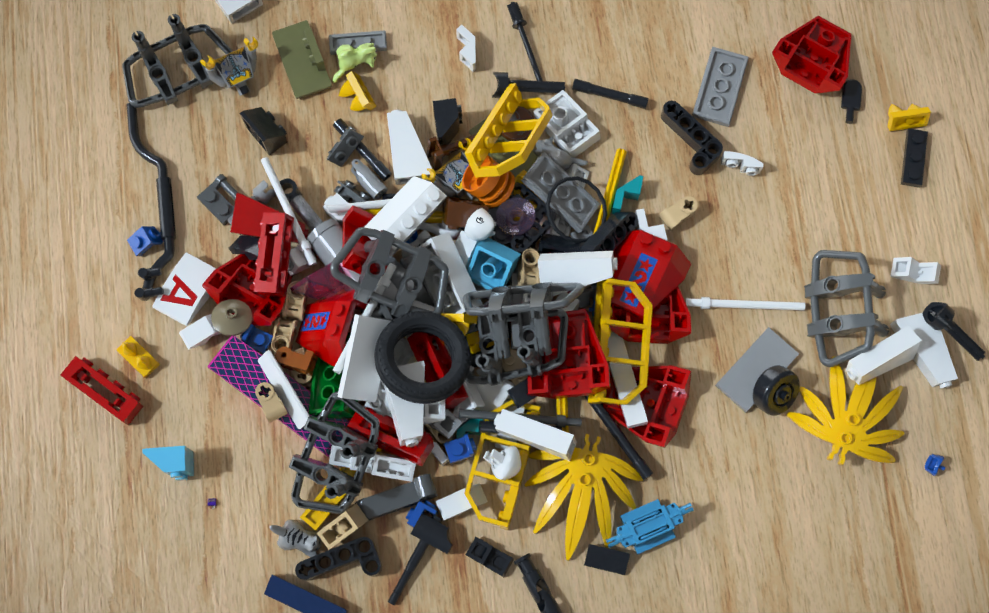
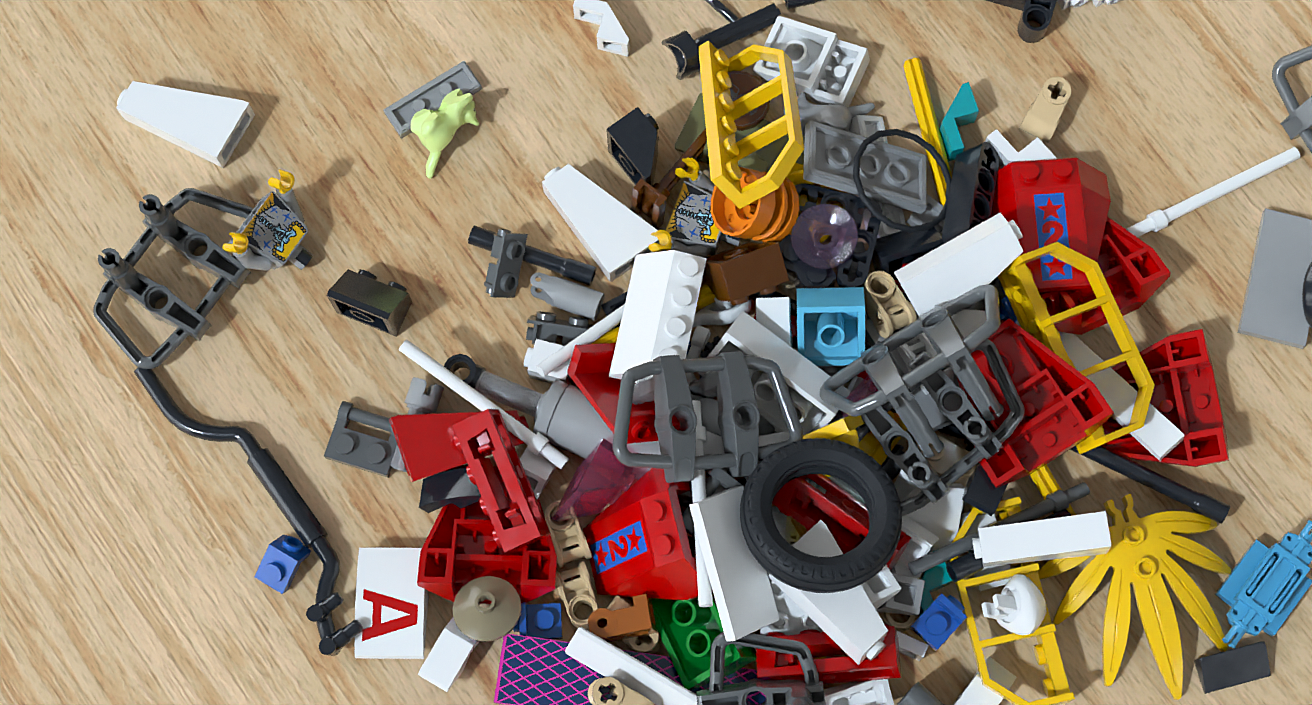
camera: 25 degrees left, 0 degrees up
(302, 59) = (364, 166): olive bracket -> none
(355, 85) = (466, 166): yellow tile -> none
(480, 225) = (784, 277): white piece -> none

